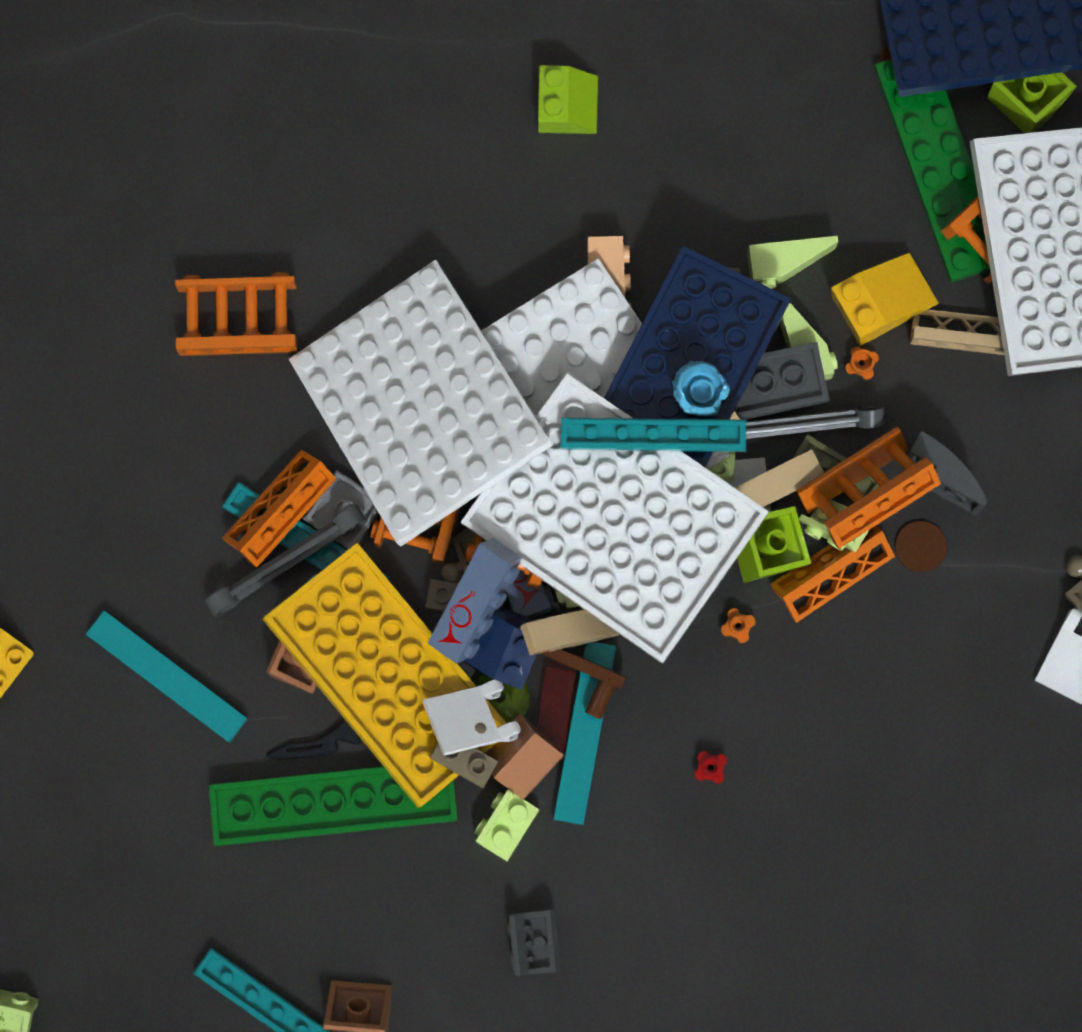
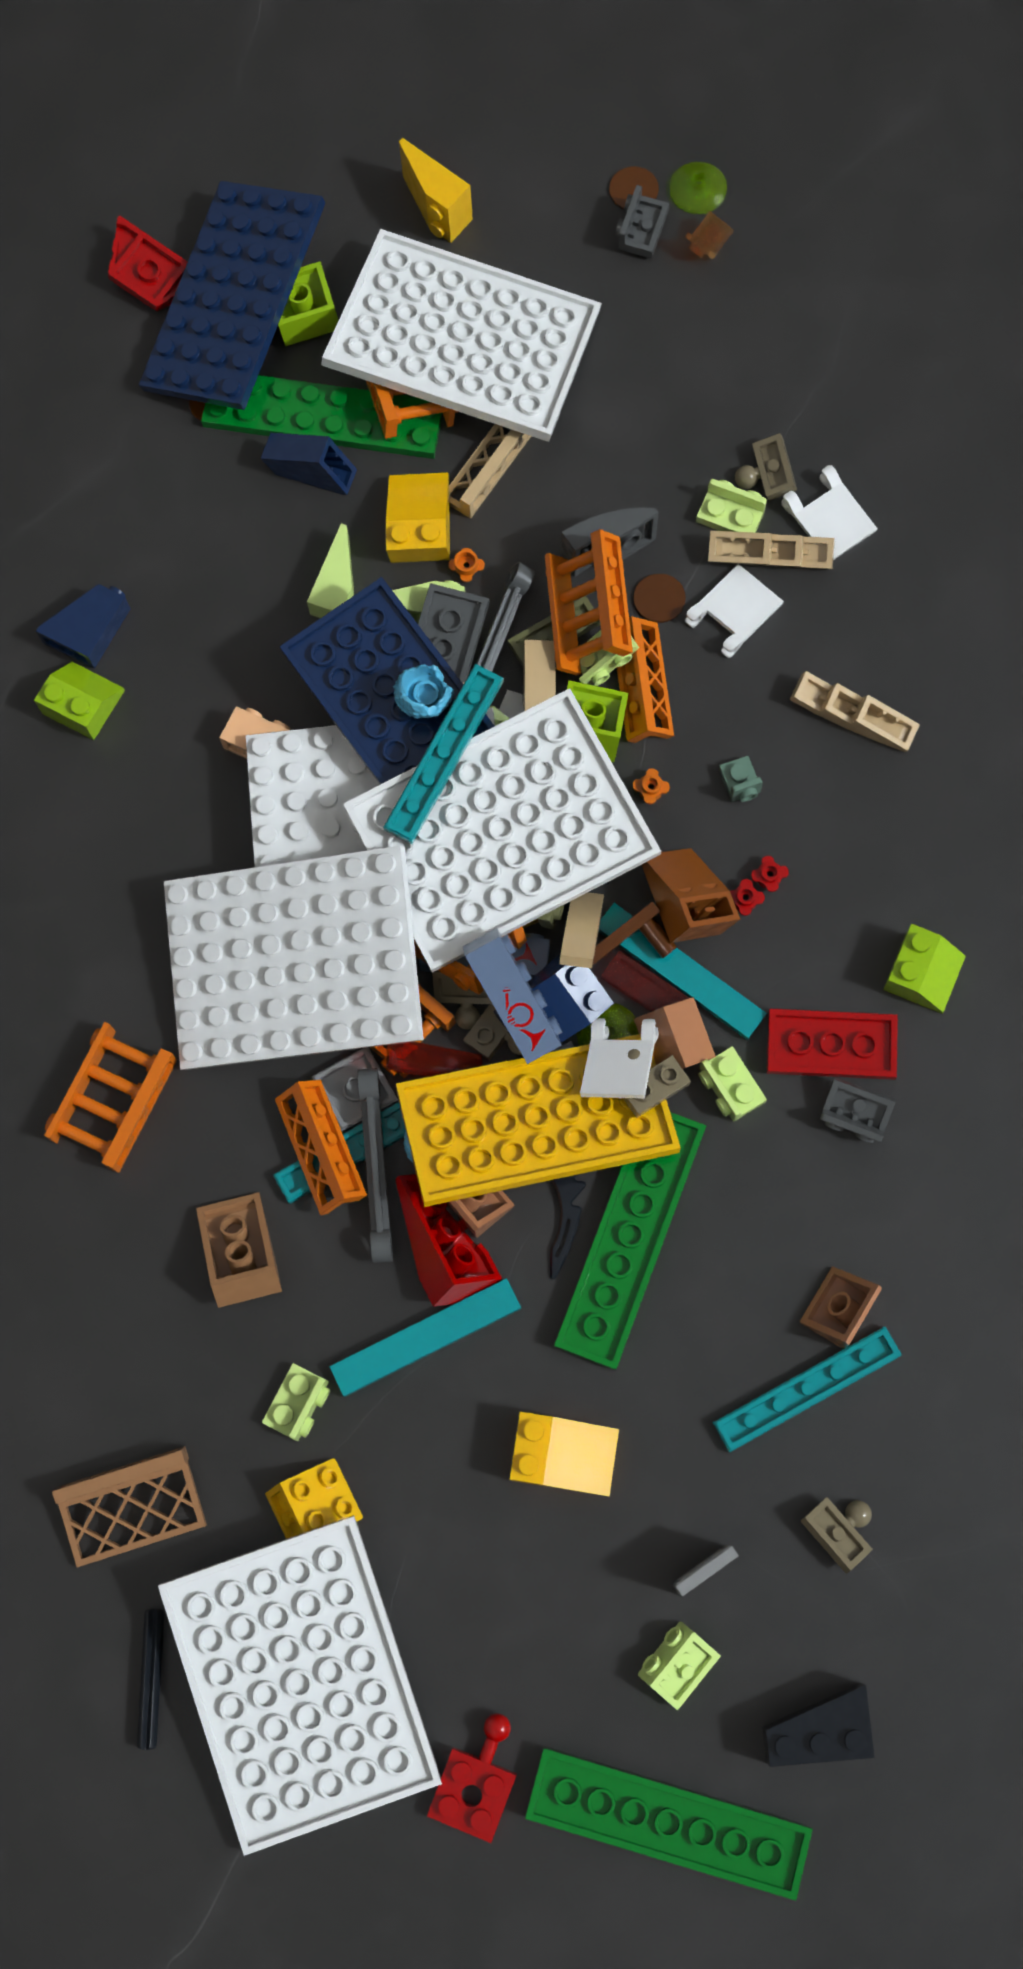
camera: 60 degrees left, 5 degrees down
(62, 599) = (296, 1402): none -> yellowish green bracket
(83, 997) = (704, 1570): none -> light grey tile
(124, 837) = (564, 1454): none -> yellow slope
(162, 486) = (238, 1250): none -> medium nougat slope
(239, 659) = (444, 1254): none -> red wedge
(397, 565) = (429, 1059): none -> clear red tile
(584, 894) = (832, 1044): none -> red plate
(635, 71) = (86, 625): none -> dark blue slope
(652, 705) = (689, 896): none -> dark orange slope
(675, 748) = (746, 906): none -> red plate
(691, 943) = (925, 969): none -> lime slope
(785, 700) = (740, 779): none -> sand green bracket
(884, 177) = (309, 461): none -> dark blue slope
(899, 770) = (855, 713): none -> tan slope
(949, 619) = (738, 605): none -> white flag
(1015, 623) = (771, 549): none -> tan slope
(1036, 569) = (731, 508): none -> yellowish green bracket

